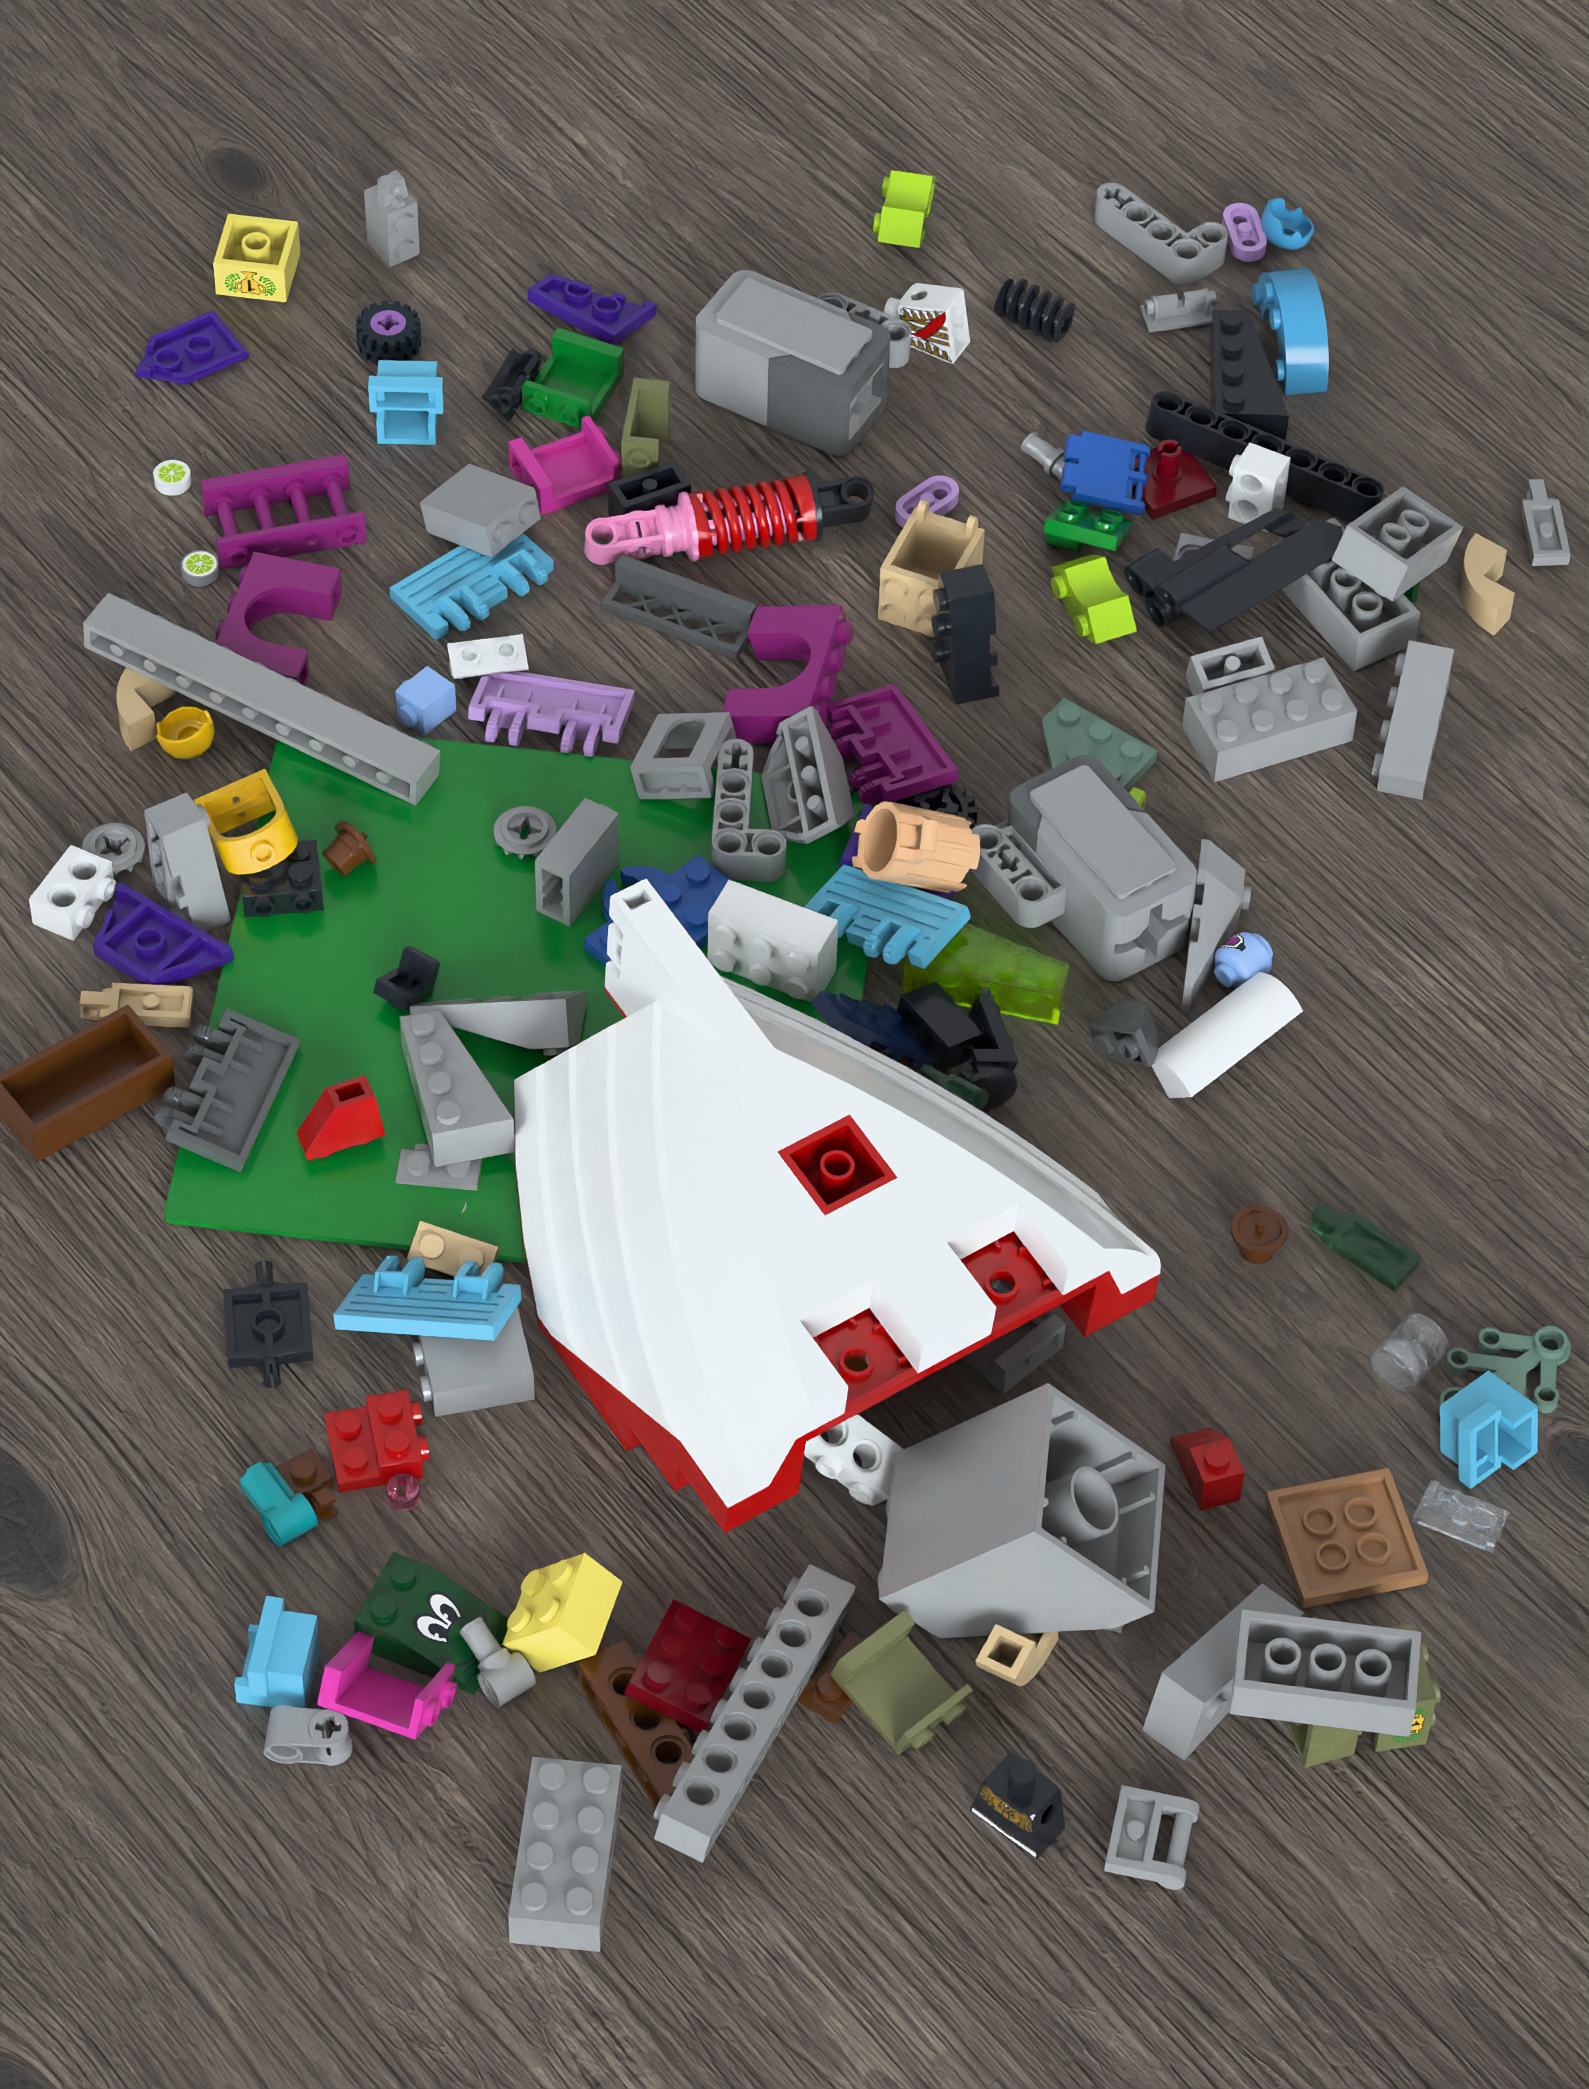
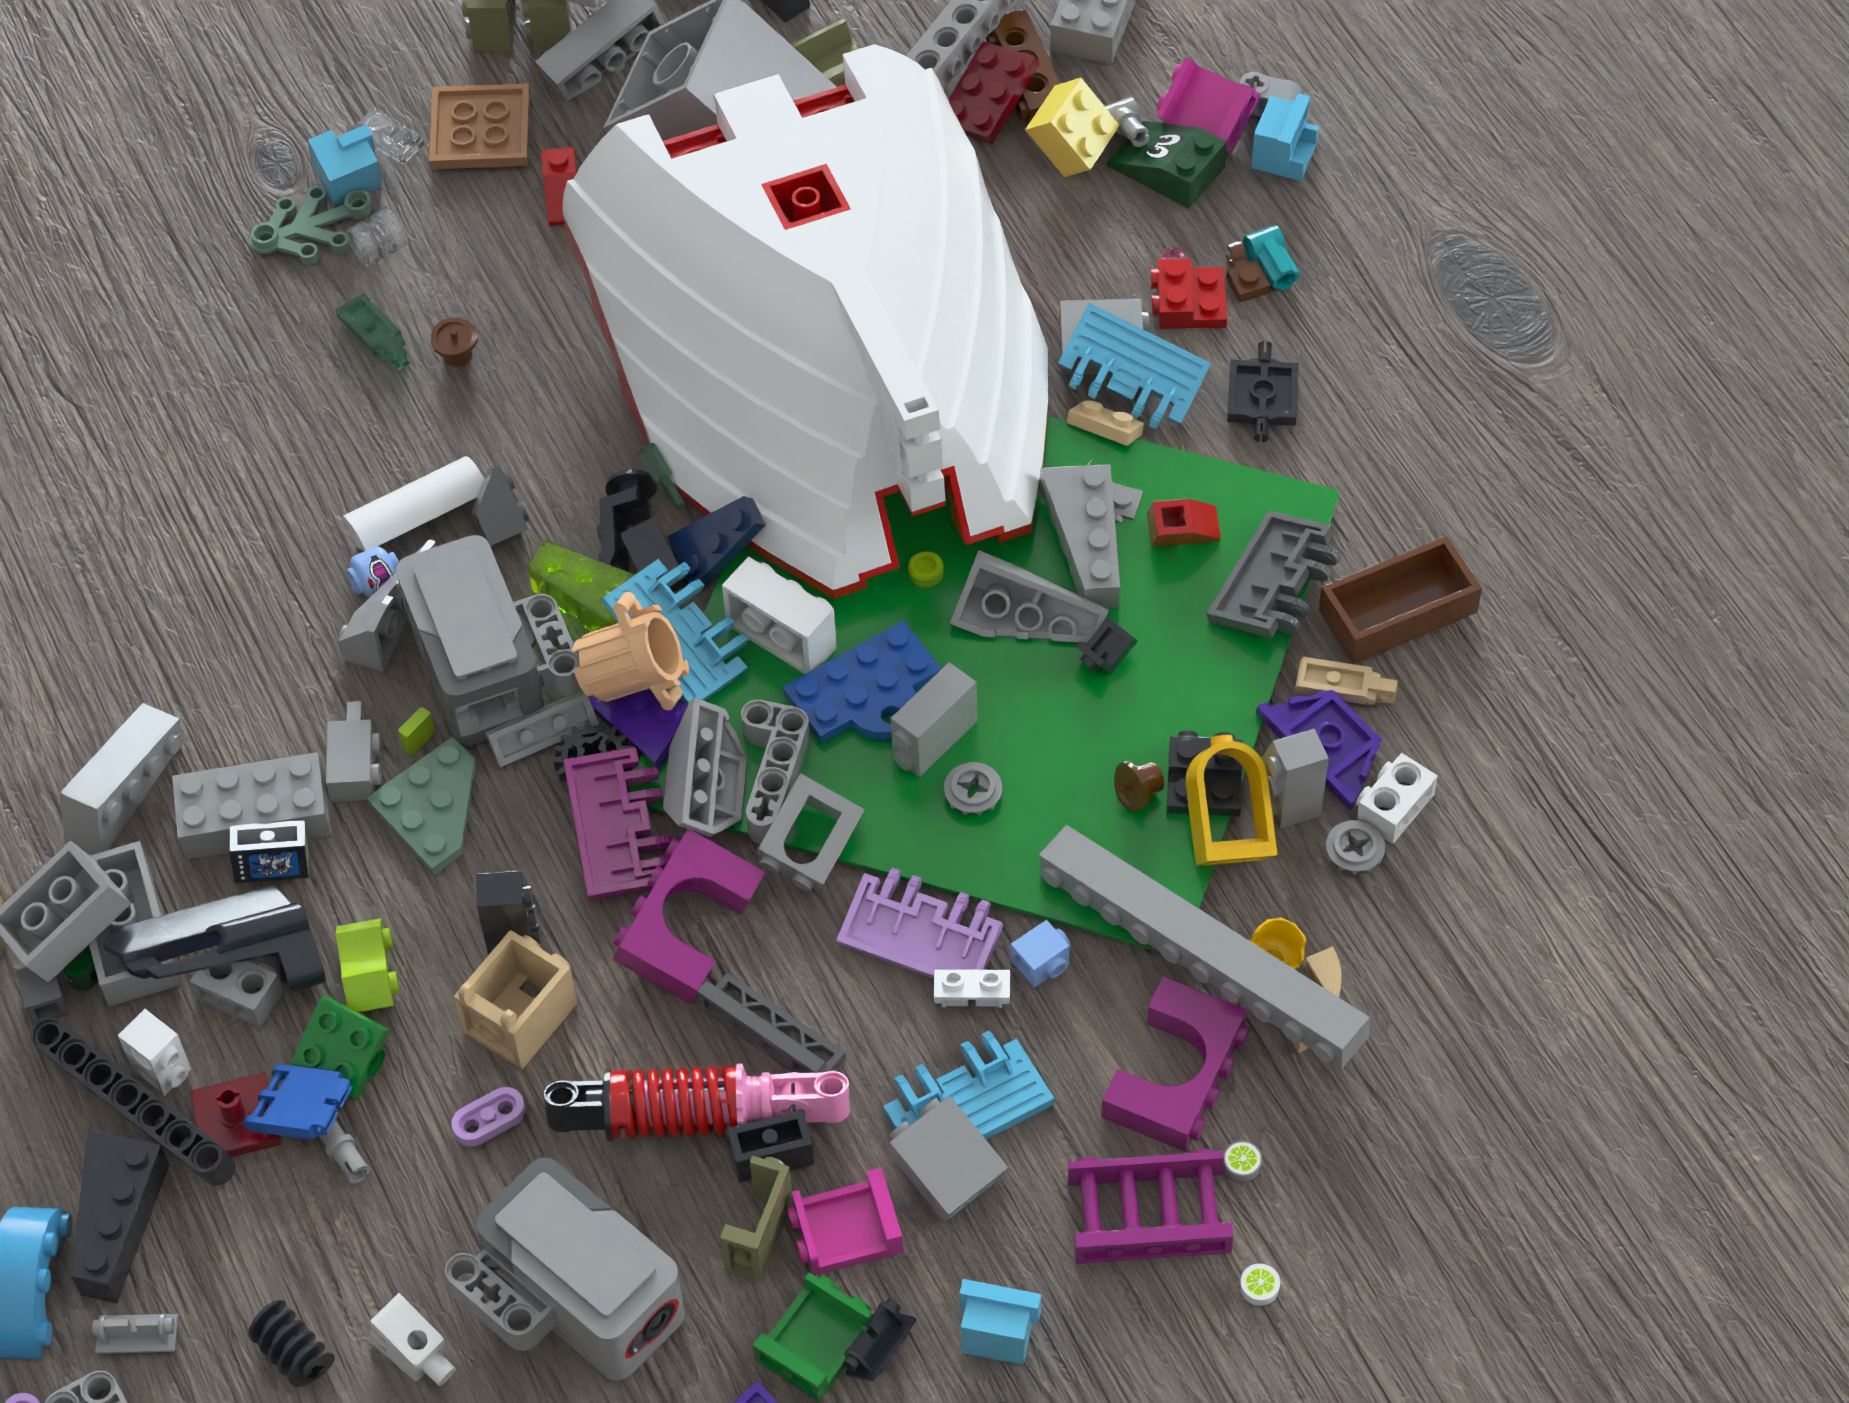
camera: 165 degrees left, 5 degrees up
(1187, 782) = (352, 756): none -> light grey hinge

